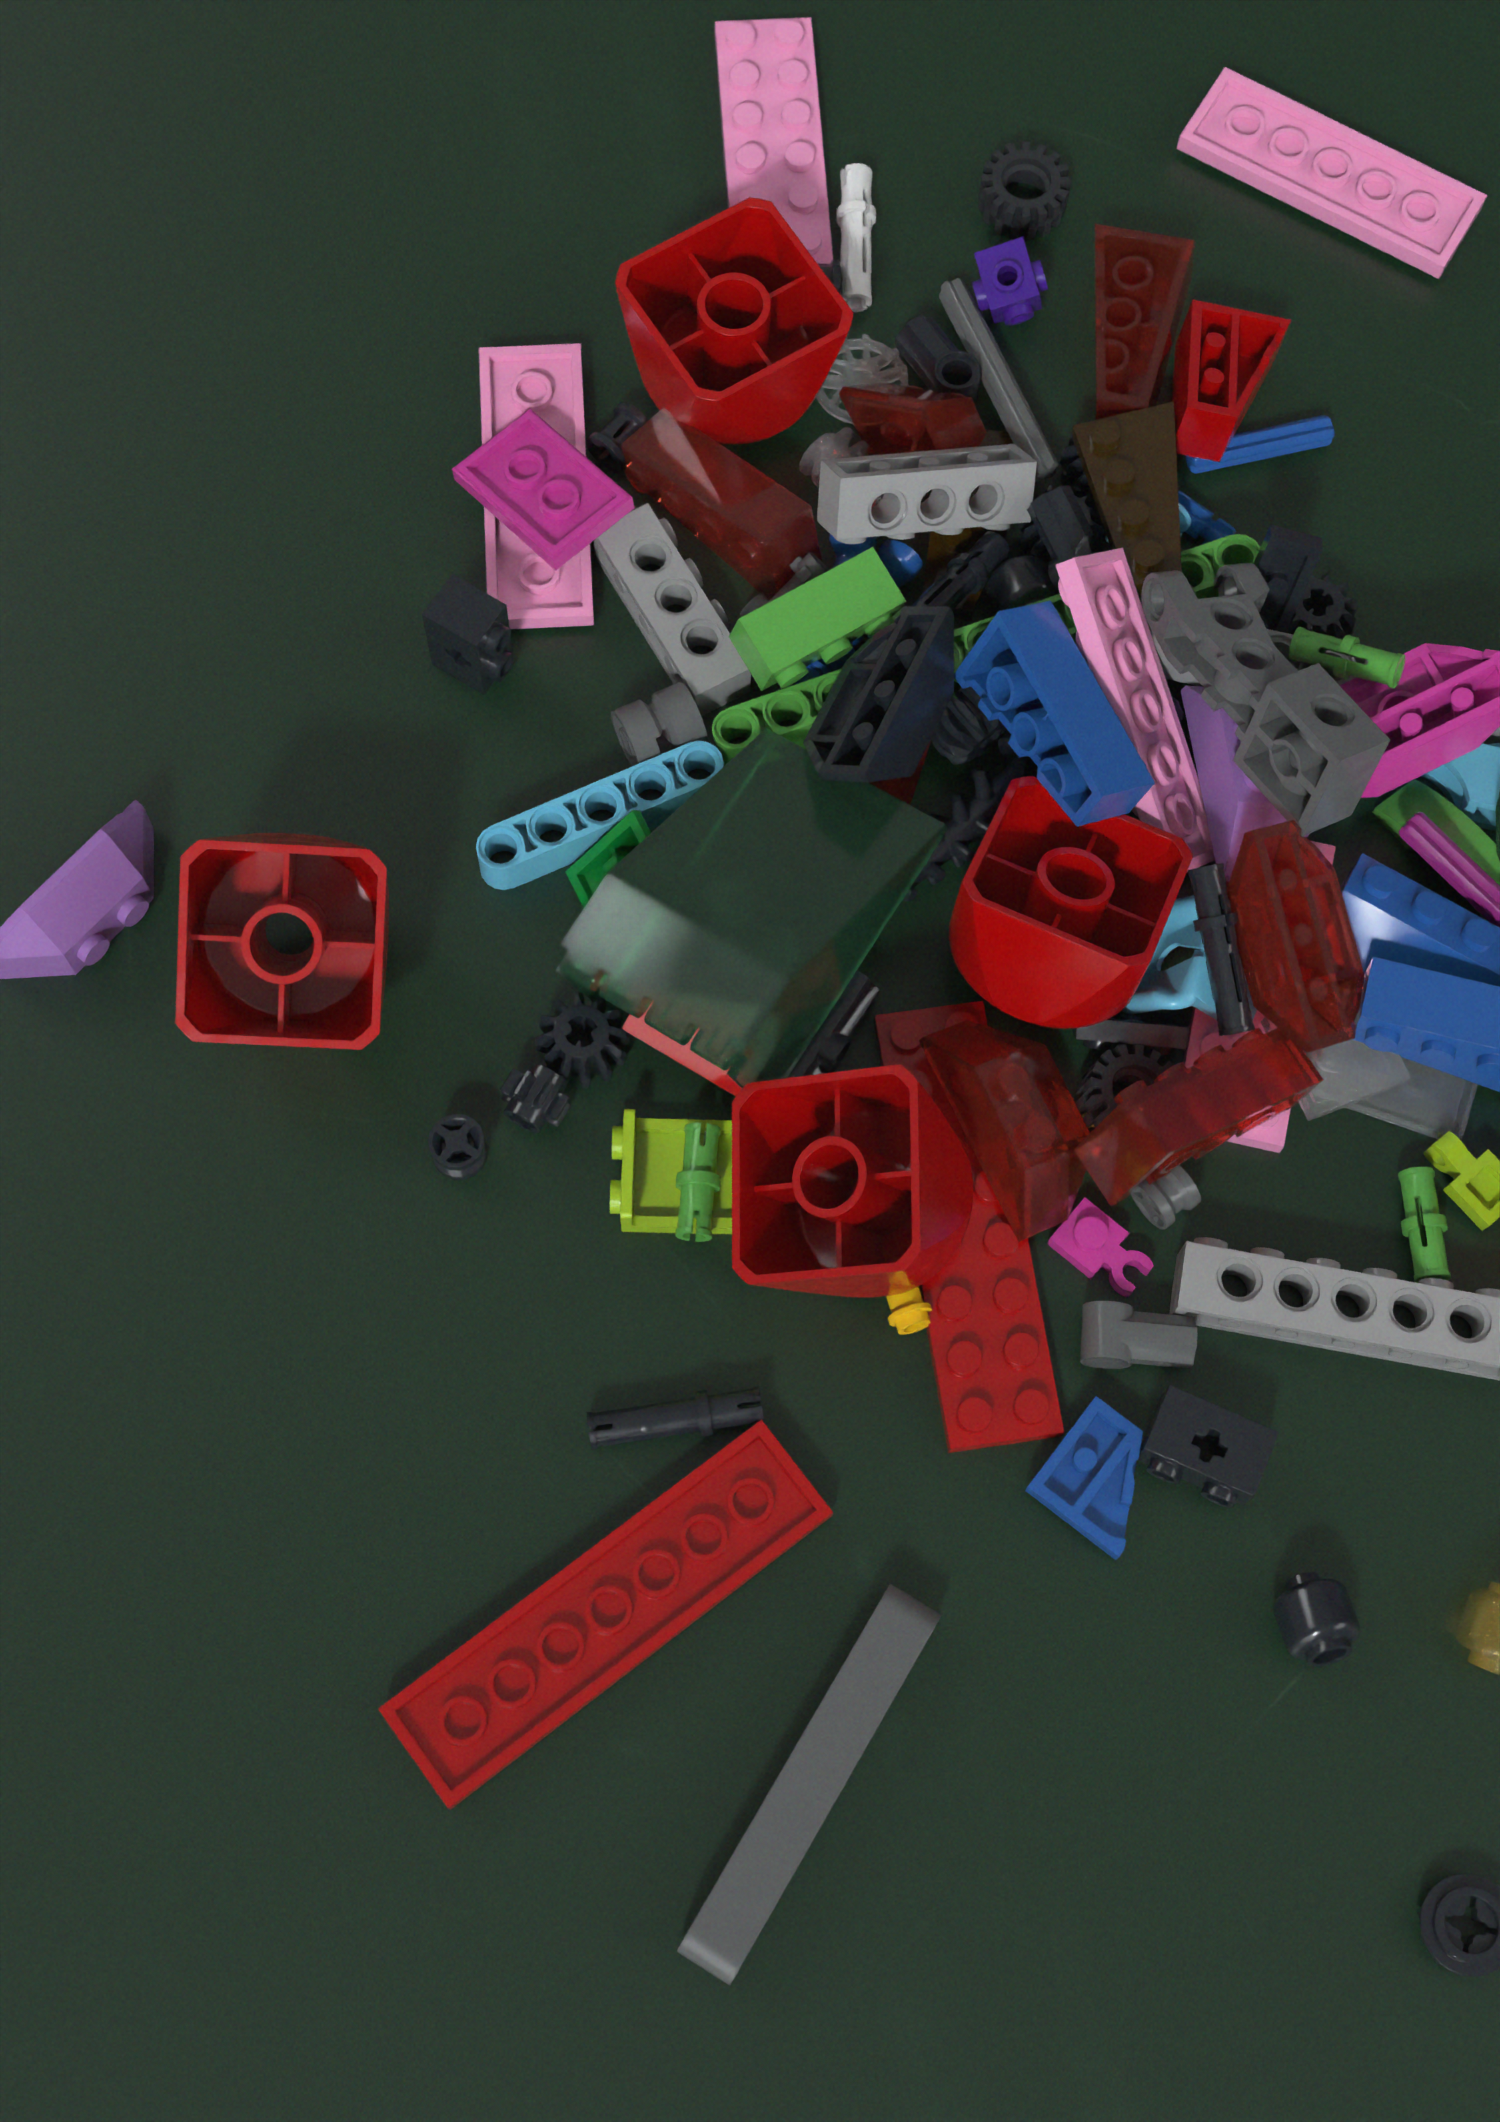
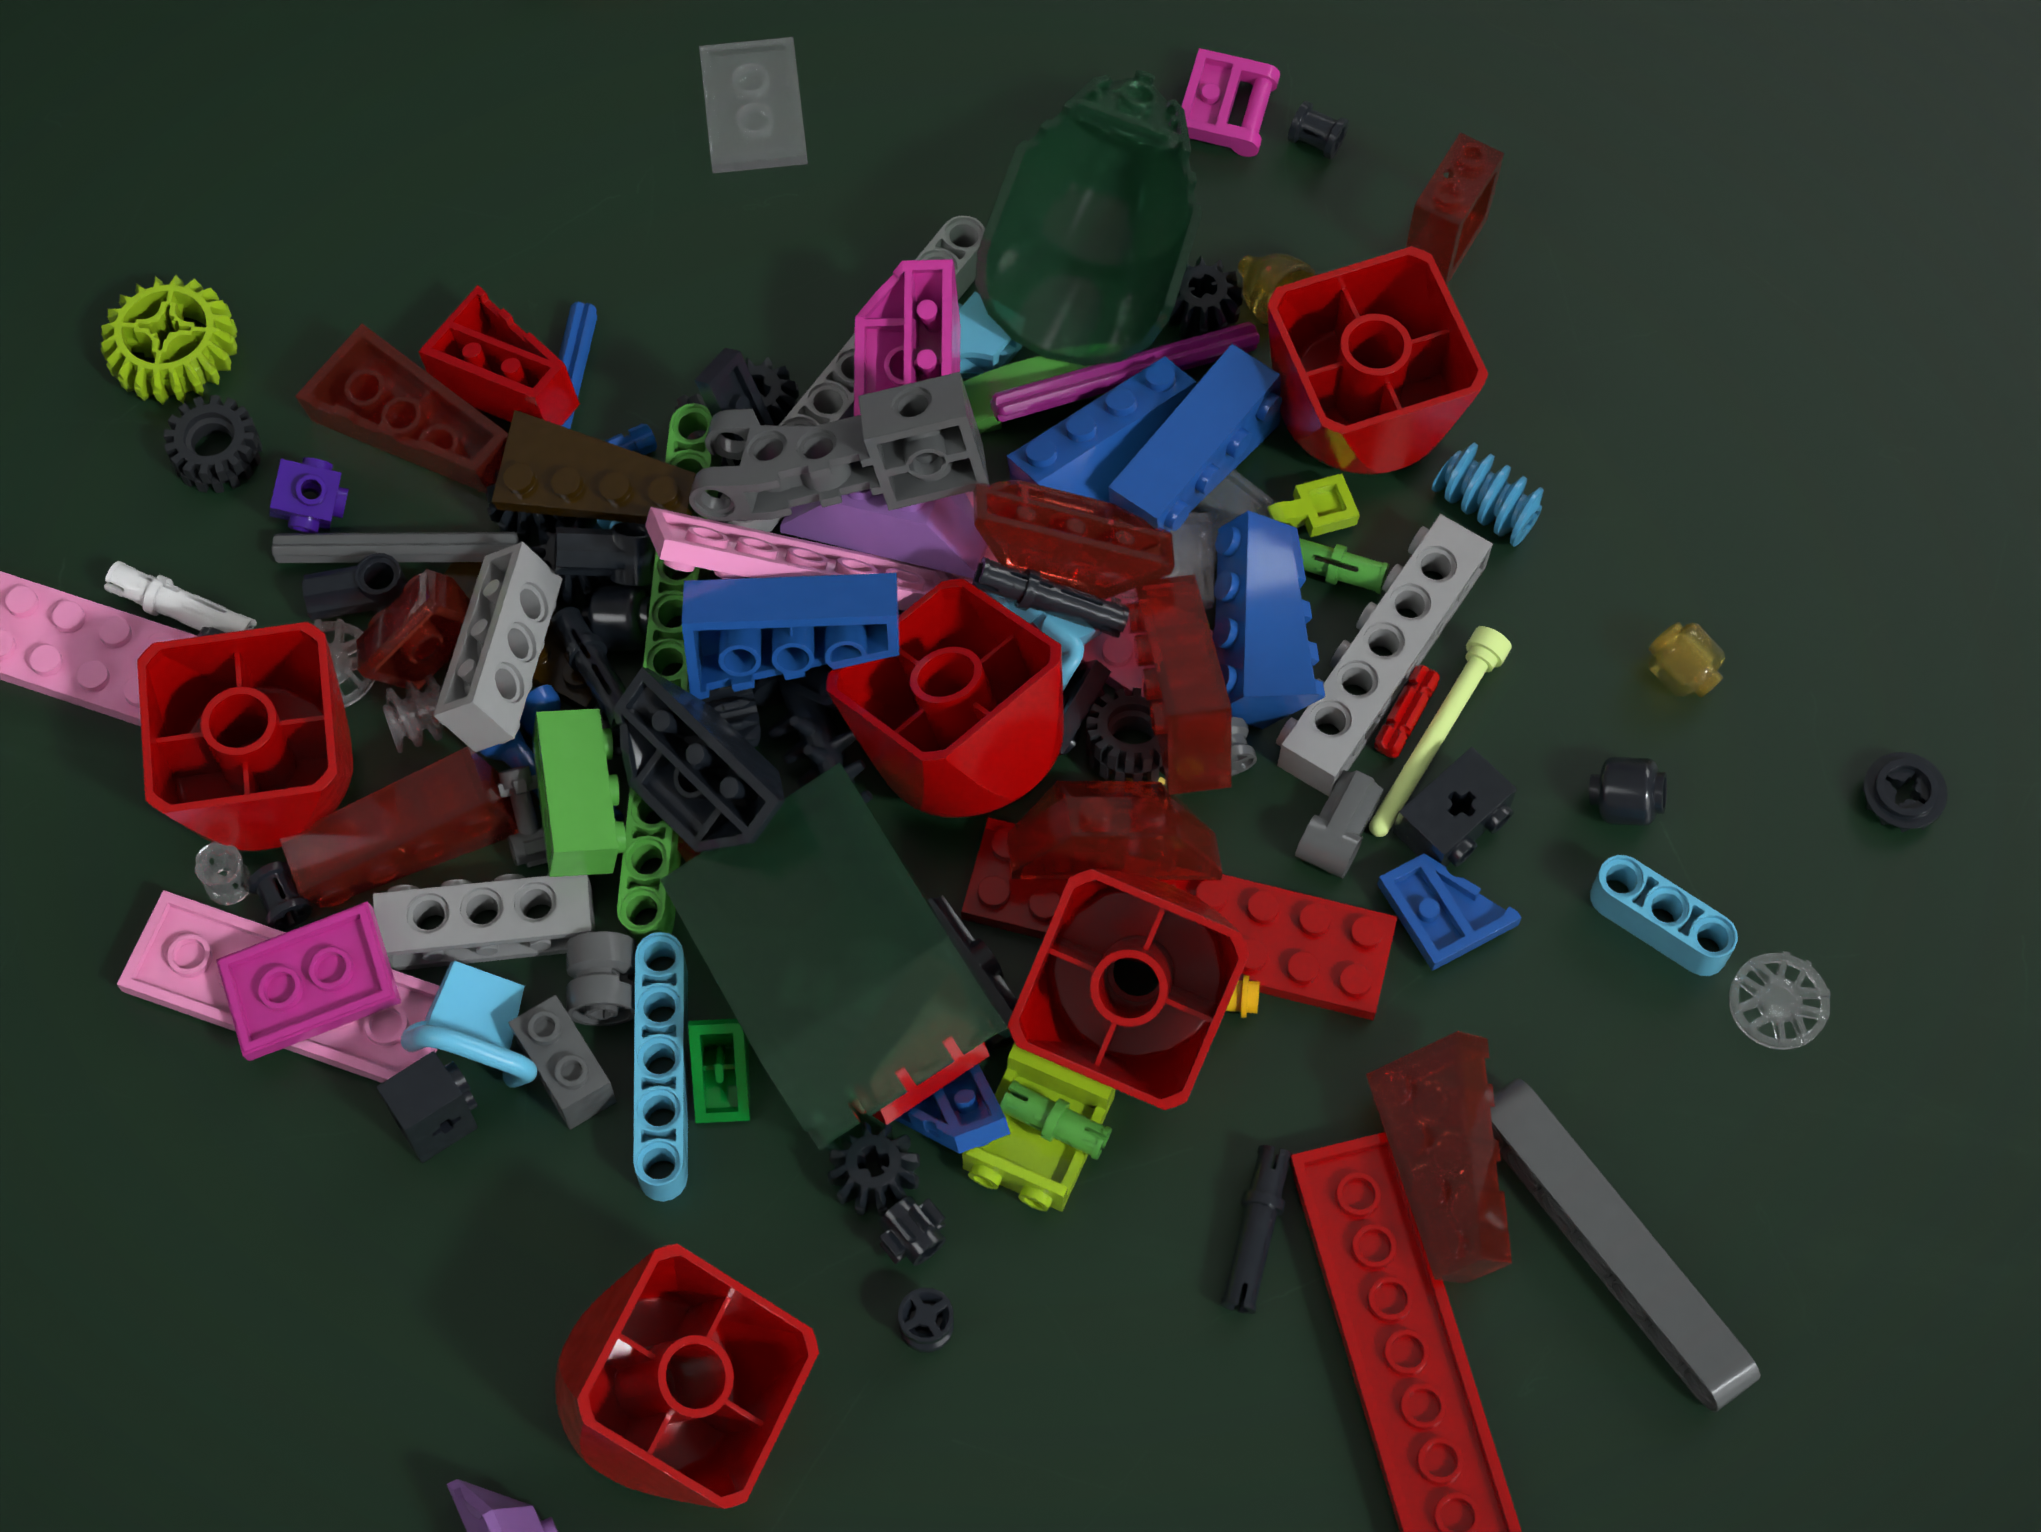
camera: 65 degrees left, 5 degrees down
(565, 730) = (563, 1062): none -> dark grey brick
(575, 637) = (472, 1022): none -> medium azure piece
(610, 374) = (218, 886): none -> clear bush
(666, 1093) = (960, 1114): none -> blue wing
(821, 1570) = (1446, 1153): none -> clear red wedge
(1093, 1242) = (1244, 825): dark pink plate -> none
(1111, 95) = (182, 352): none -> lime gear
(1160, 1867) = (1779, 1000): none -> clear wheel
(1212, 1683) = (1674, 939): none -> medium azure beam
(1297, 1359) = (1406, 711): none -> red axle
(1313, 1168) = (1263, 621): none -> blue wedge
(1331, 172) = (333, 192): bright pink plate -> none
(1382, 665) = (863, 357): bright green pin -> none
(1401, 1412) = (1485, 651): none -> yellowish green piece

